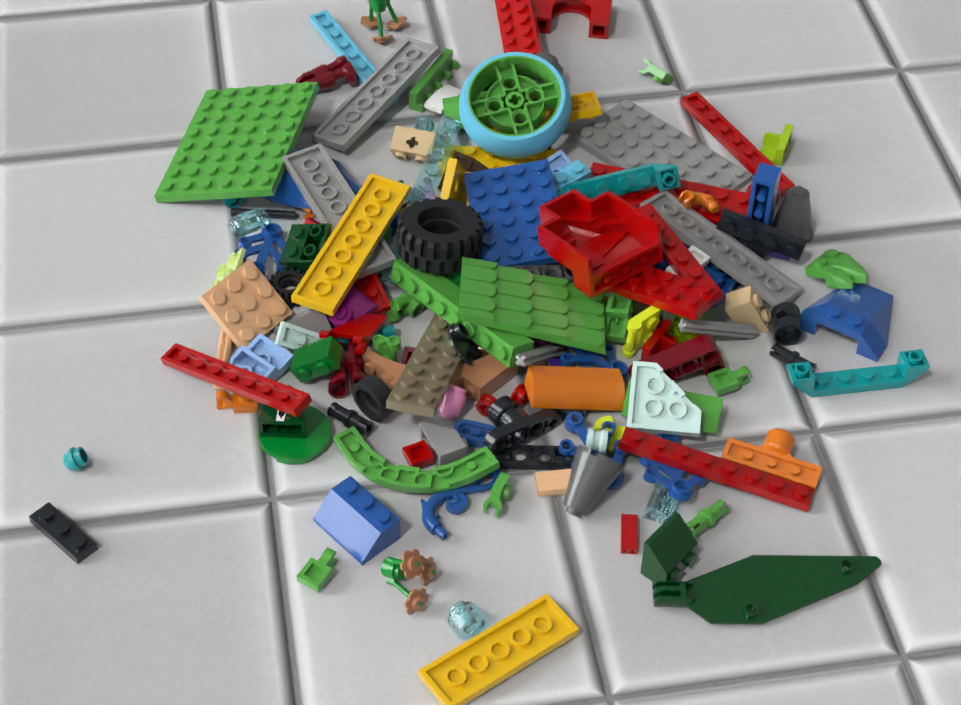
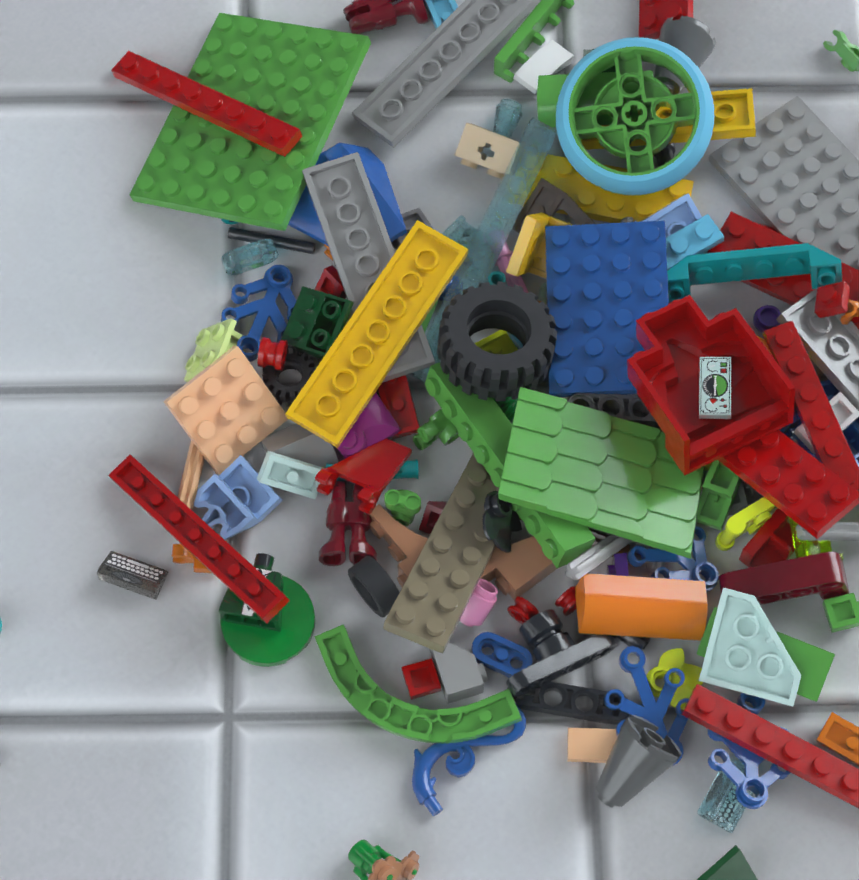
camera: 10 degrees right, 20 degrees up
(186, 419) = (132, 574): none -> slope
(205, 133) = (207, 103): none -> red plate
(275, 267) = (272, 353): none -> red wheel
(316, 359) = (308, 513): green brick -> none
(318, 572) = (267, 847): bright green plate -> none
(350, 418) = (341, 607): black pin -> none
(357, 521) = (328, 776): slope -> none
(500, 491) = (518, 755): bright green plate -> none
(597, 440) = (654, 700): light aqua wheel -> none
(603, 241) = (715, 388): none -> tile
(629, 534) = (675, 840): red piece -> none
(675, 191) = (832, 299): none -> red plate
(707, 517) = (779, 834): bright green pin -> none

